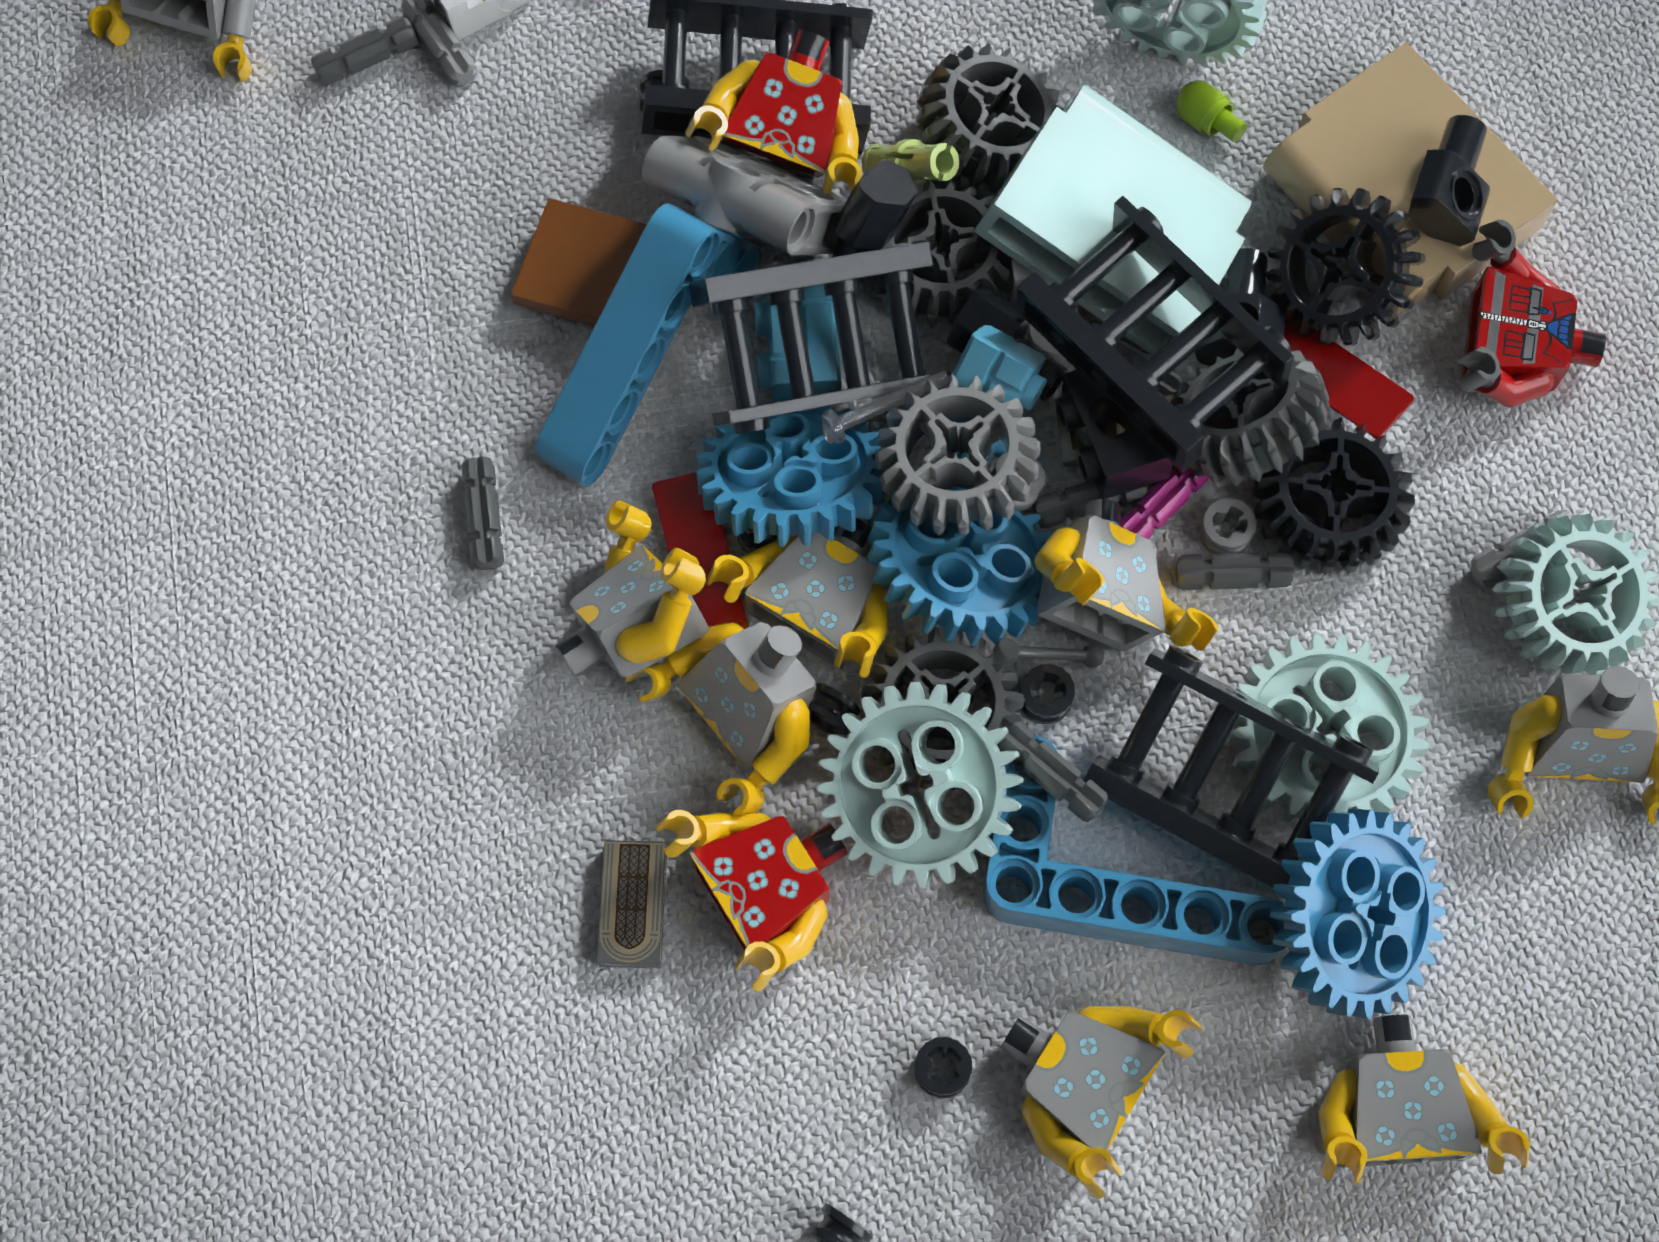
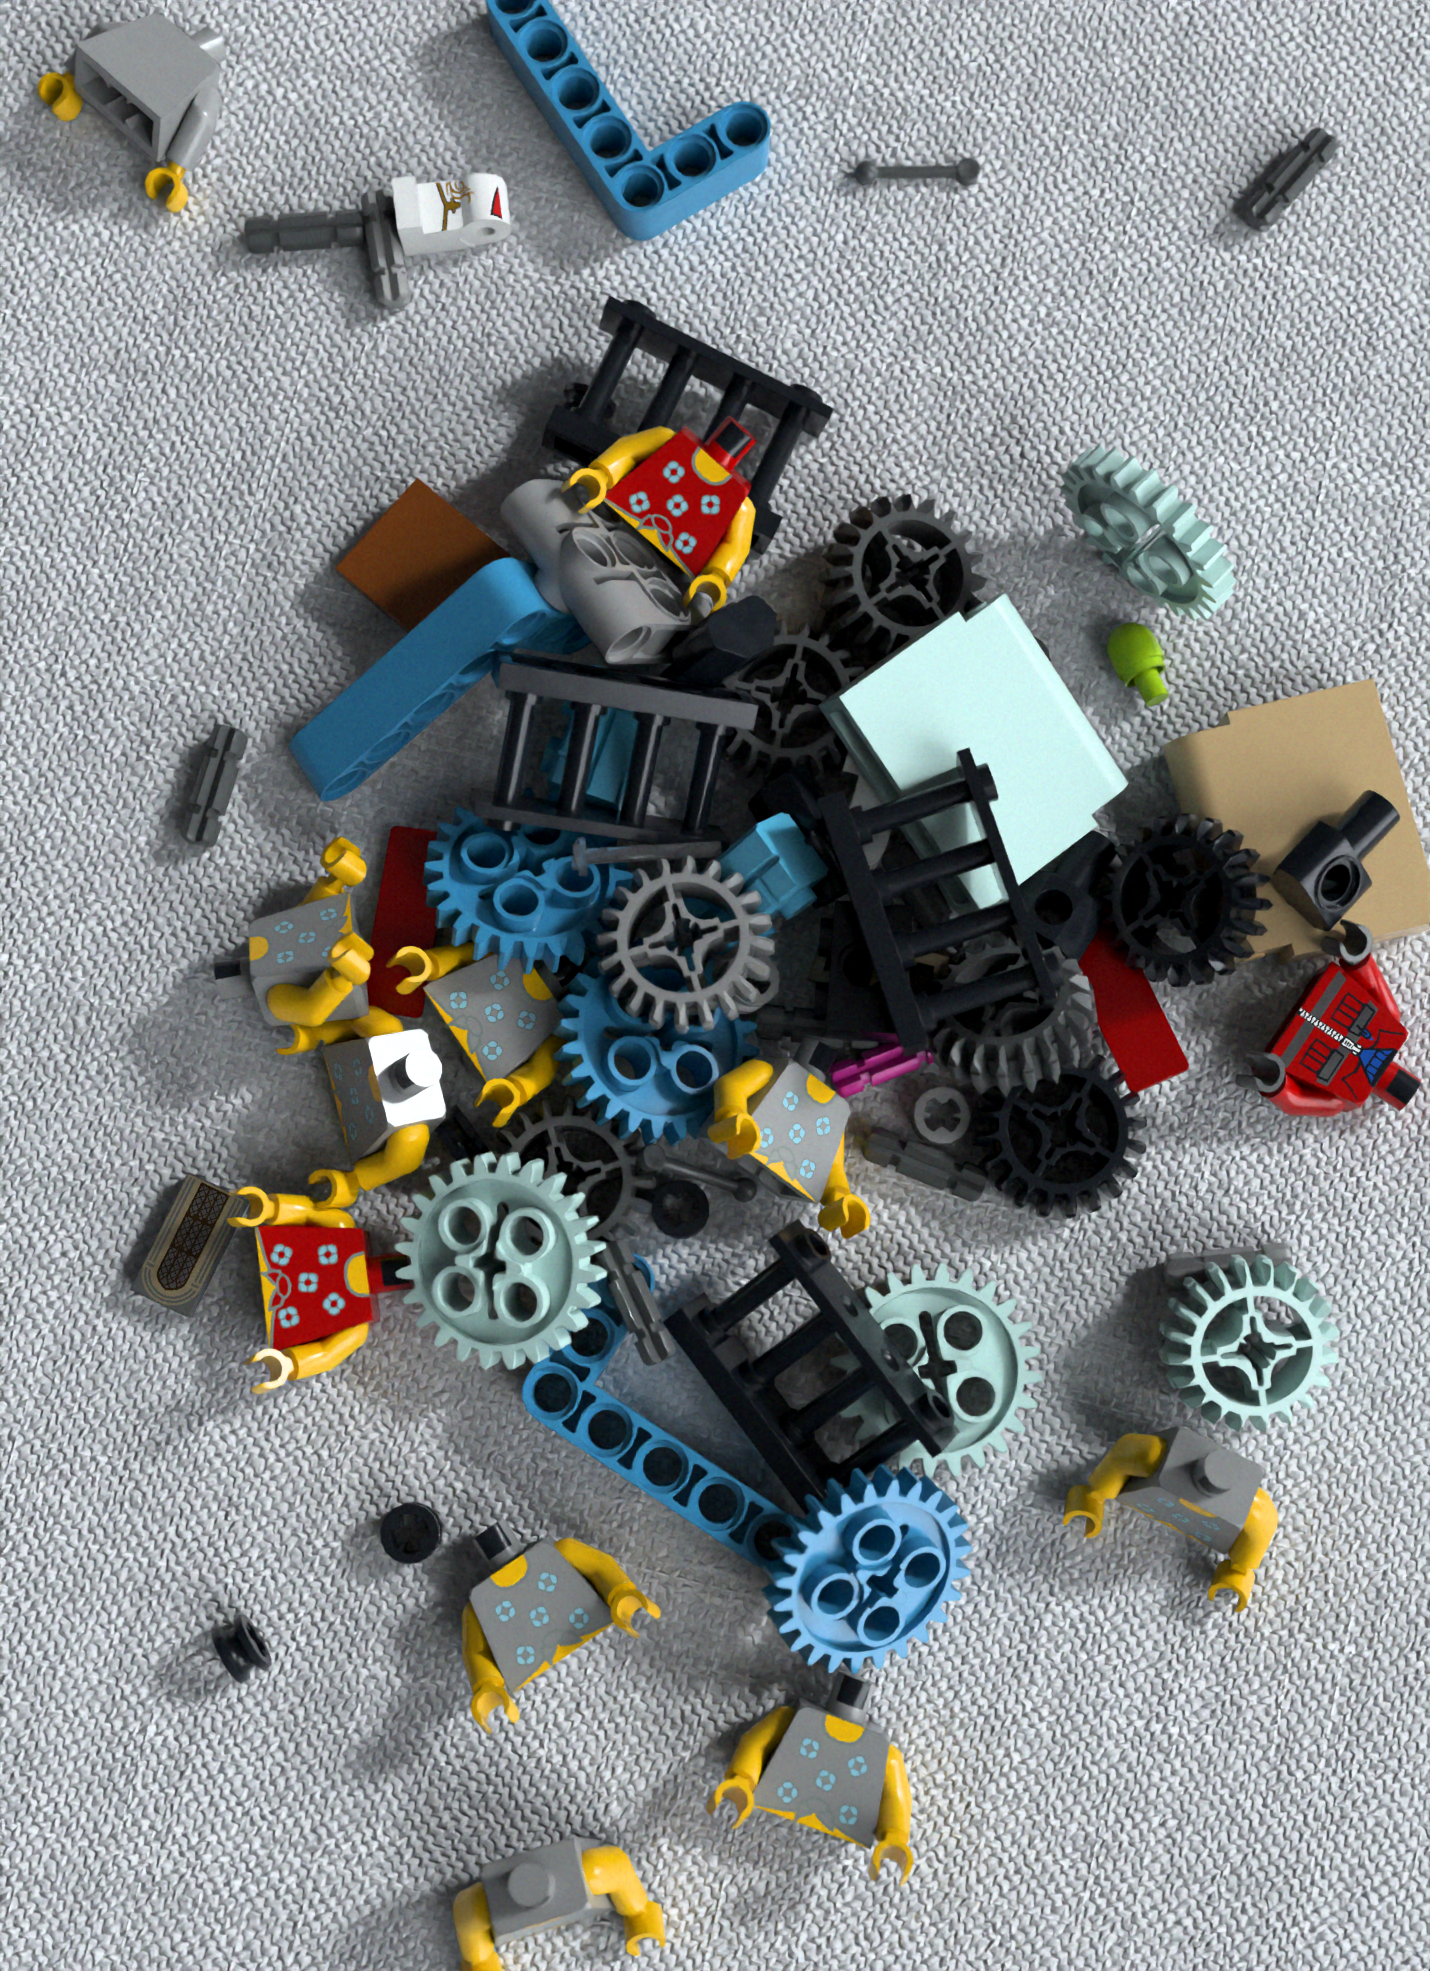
camera: 20 degrees right, 10 degrees up
(921, 160) = (795, 596): yellowish green pin -> none

